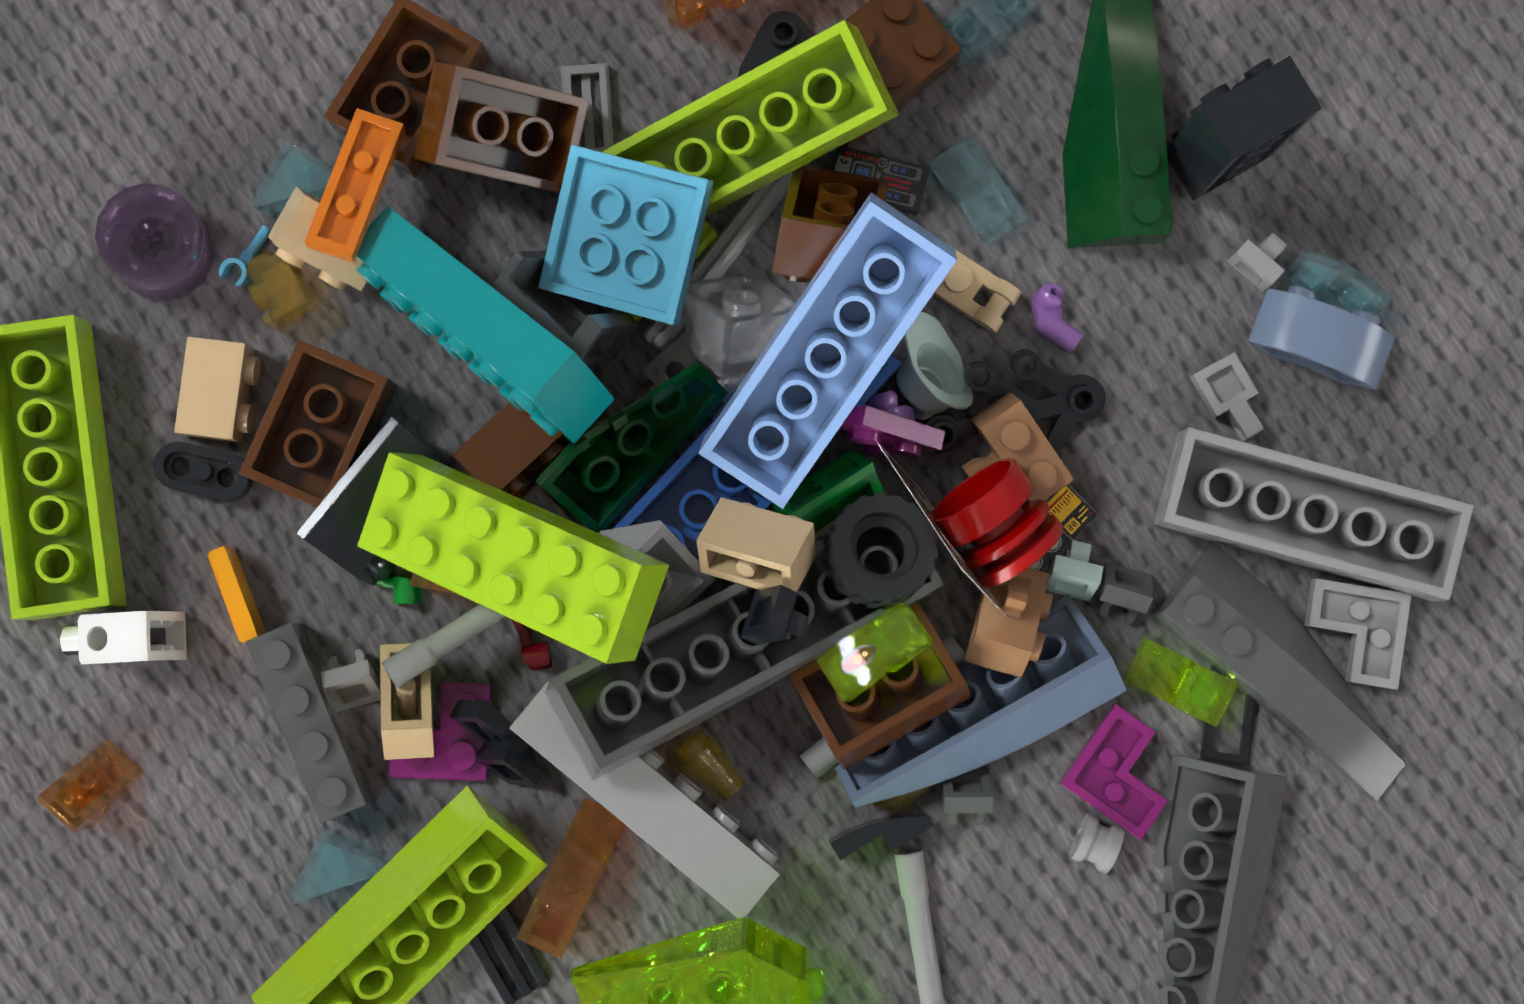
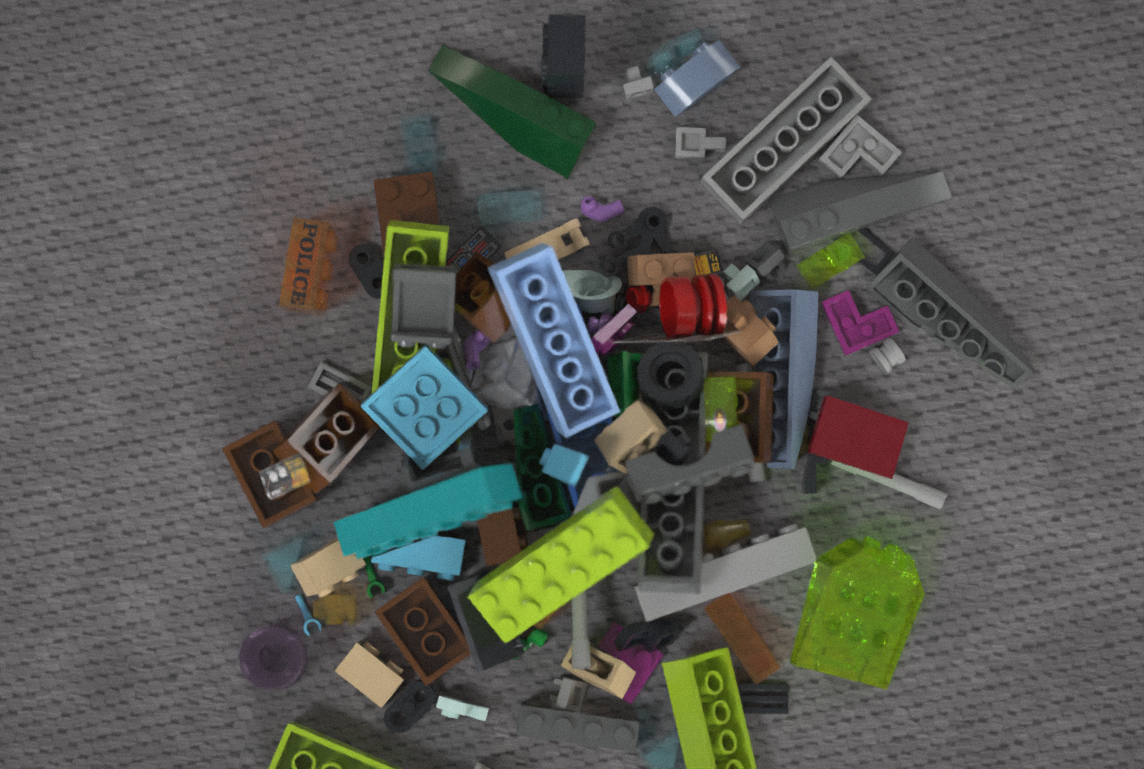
camera: 60 degrees left, 0 degrees up
(236, 593) = (486, 727): light orange tile -> none
(239, 534) = (453, 707): none -> light aqua plate
(351, 314) = (372, 577): none -> green hand
(355, 185) = (313, 532): orange plate -> none
(407, 97) = (284, 476): none -> clear tile
(433, 378) = (433, 554): none -> medium azure slope
(533, 655) = (613, 588): dark red hand -> none
(658, 476) = (563, 464): none -> medium azure slope
(750, 256) = (472, 347): none -> medium lavender arm
(764, 140) = (423, 305): none -> dark grey panel
(810, 698) = (656, 478): none -> dark grey arch
(955, 871) = (858, 437): none -> dark red tile
(962, 443) = (638, 298): none -> red plate

